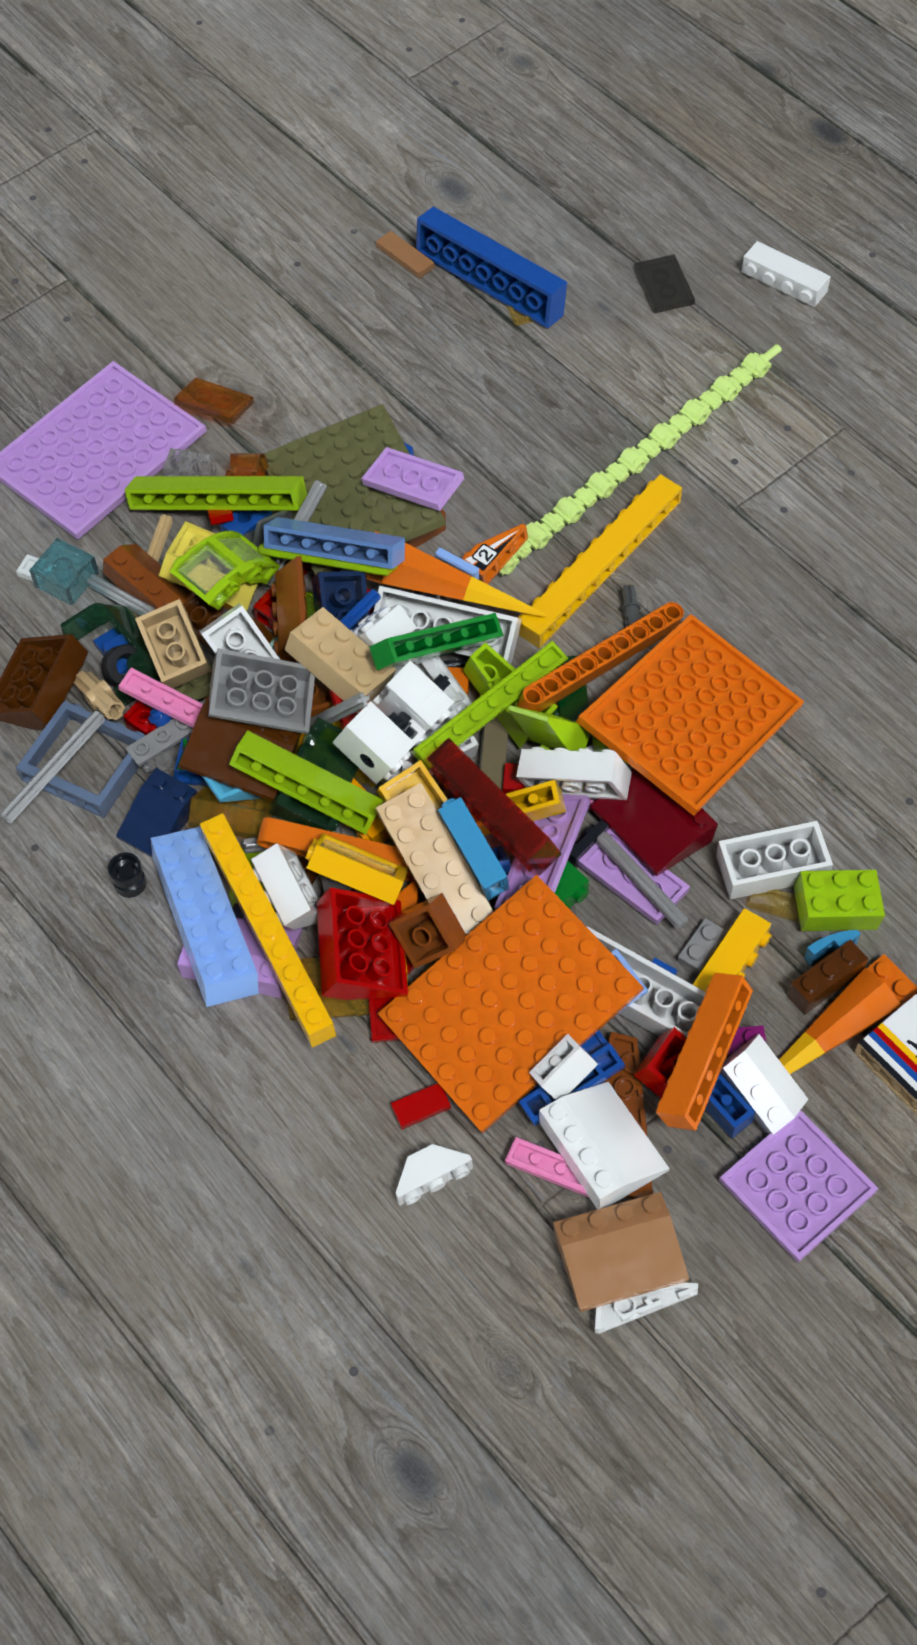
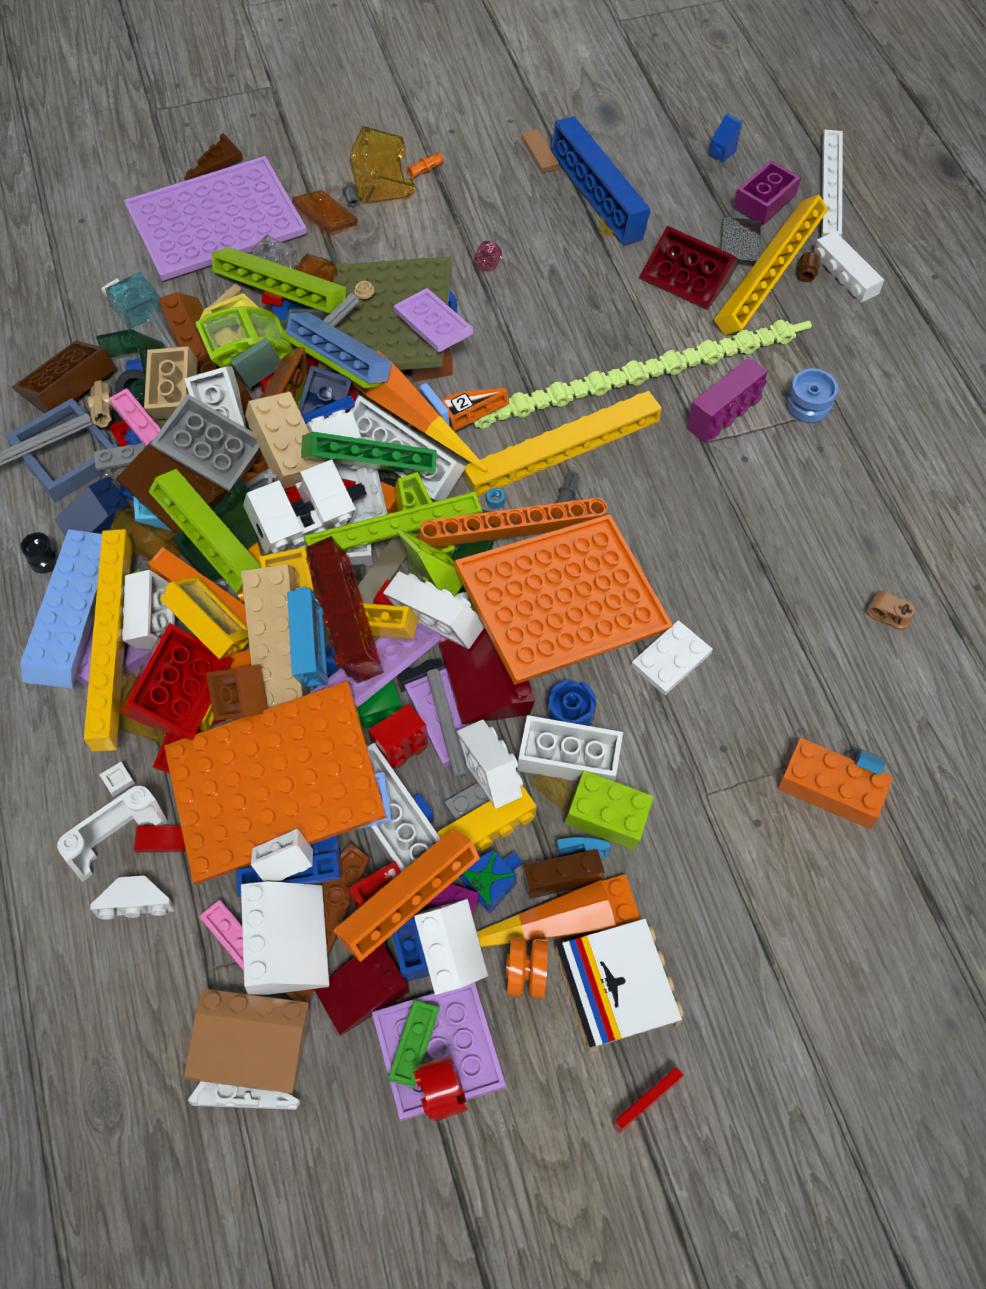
camera: 20 degrees right, 0 degrees up
(59, 379) = (215, 158): none -> reddish brown wing
(226, 368) = (349, 191): none -> dark grey pin
(241, 333) = (378, 167): none -> clear yellow windscreen
(252, 588) = (256, 362): none -> sand green tile
(292, 312) = (425, 165): none -> orange pin
(315, 471) = (364, 290): none -> tan plate
(343, 1066) = (117, 779): none -> white plate
(346, 1138) = (133, 804): none -> white windscreen
(416, 389) = (488, 255): none -> clear pink head
(563, 634) = (498, 493): none -> dark azure axle
(596, 177) = (726, 138): none -> blue slope
(608, 907) = (400, 736): none -> red brick
(629, 330) = (689, 268): none -> dark red slope
(666, 221) = (767, 191): none -> magenta brick
(698, 1161) = (362, 989): none -> dark red slope
(710, 900) = (490, 763): none -> white brick
(711, 299) = (771, 265): none -> yellow brick
(724, 189) = (832, 181): none -> white plate
(742, 456) = (727, 400): none -> magenta brick
(747, 287) = (809, 266): none -> reddish brown brick
(751, 813) = (572, 703): none -> blue brick
(766, 1007) = (492, 878): none -> torso
(776, 1187) = (414, 1043): none -> bright green tile
(817, 733) = (671, 657): none -> white plate
(820, 421) = (812, 395): none -> medium blue wheel
(828, 1212) = (441, 1088): none -> red brick
(844, 1074) = (527, 968): none -> orange wheel

